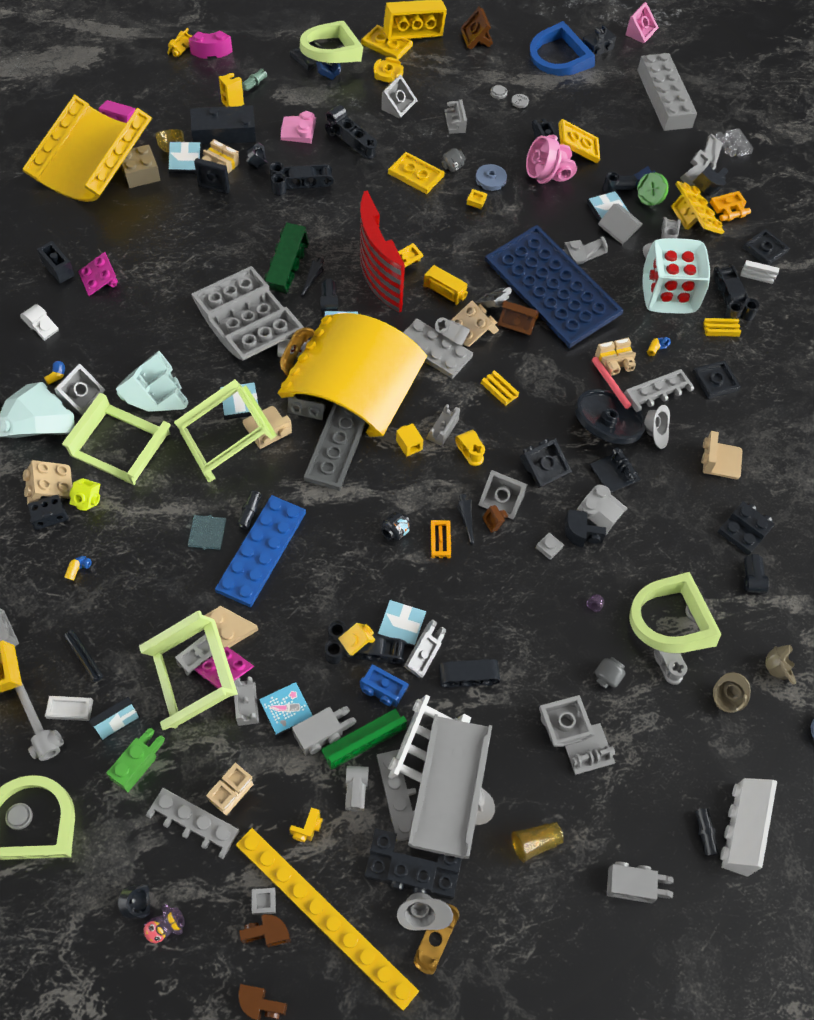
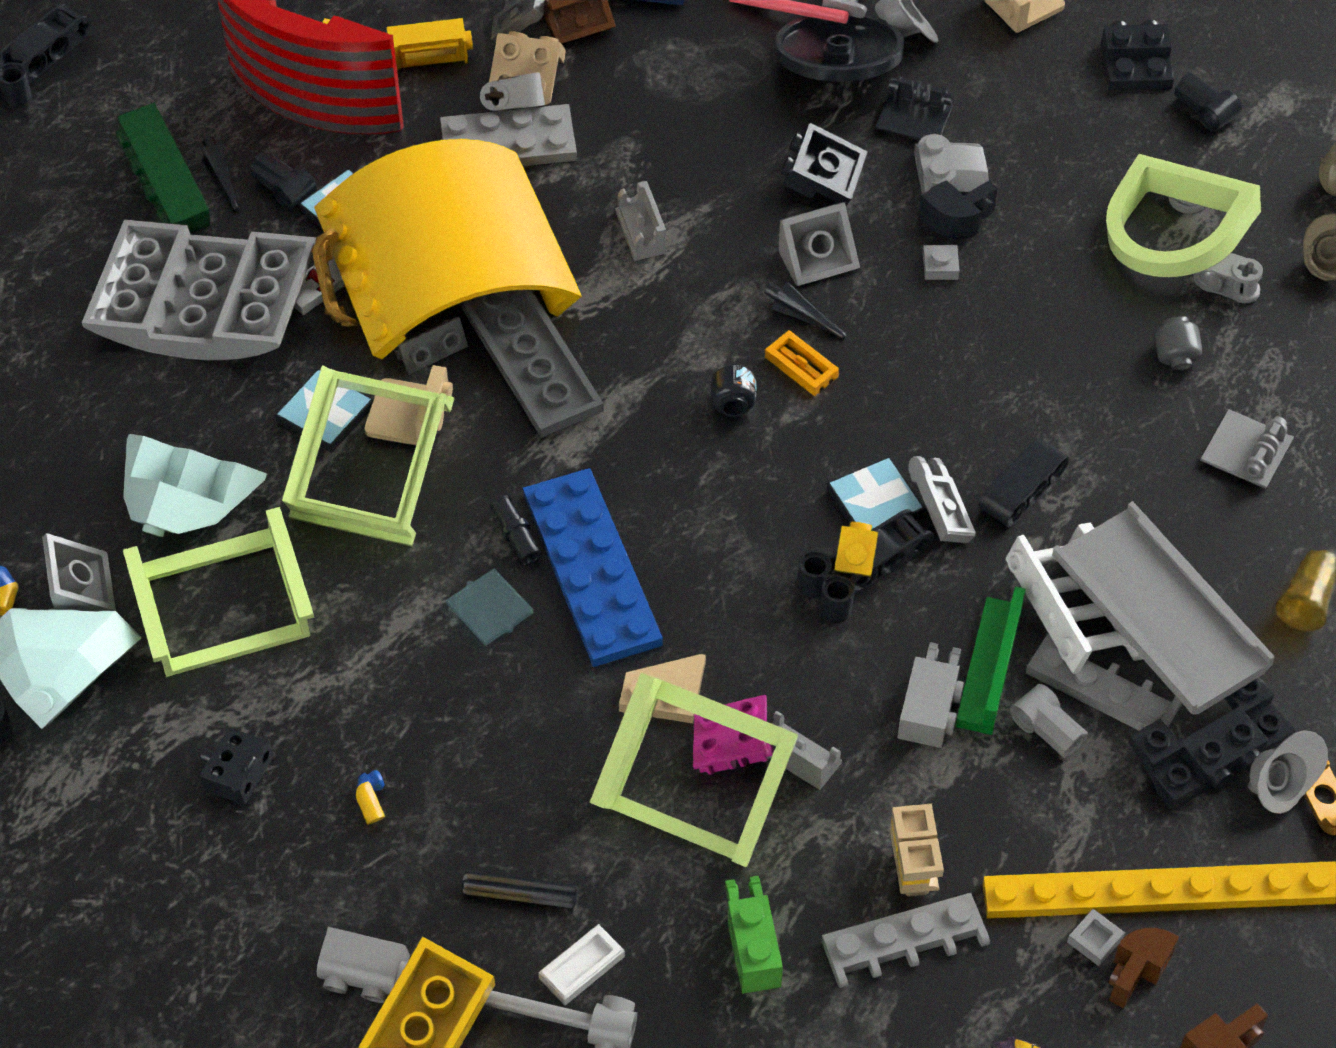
camera: 40 degrees left, 5 degrees down
(47, 480) = (180, 731): tan bracket -> none
(84, 494) = (265, 684): neon yellow brick -> none
(114, 718) = (669, 908): tile -> none
(194, 655) = (674, 748): light grey hinge -> none
(285, 708) = (857, 716): medium azure tile -> none
(312, 824) = (1050, 809): yellow bracket -> none
(383, 685) = (943, 584): blue bracket -> none
(409, 439) = (619, 274): yellow brick -> none
(471, 447) = (706, 219): yellow piece -> none
(494, 518) = (840, 282): reddish brown tile -> none
(502, 385) = (654, 122): yellow tile -> none
(566, 721) = (1195, 435): light grey slope -> none
(595, 603) = (1070, 281): clear purple hinge -> none

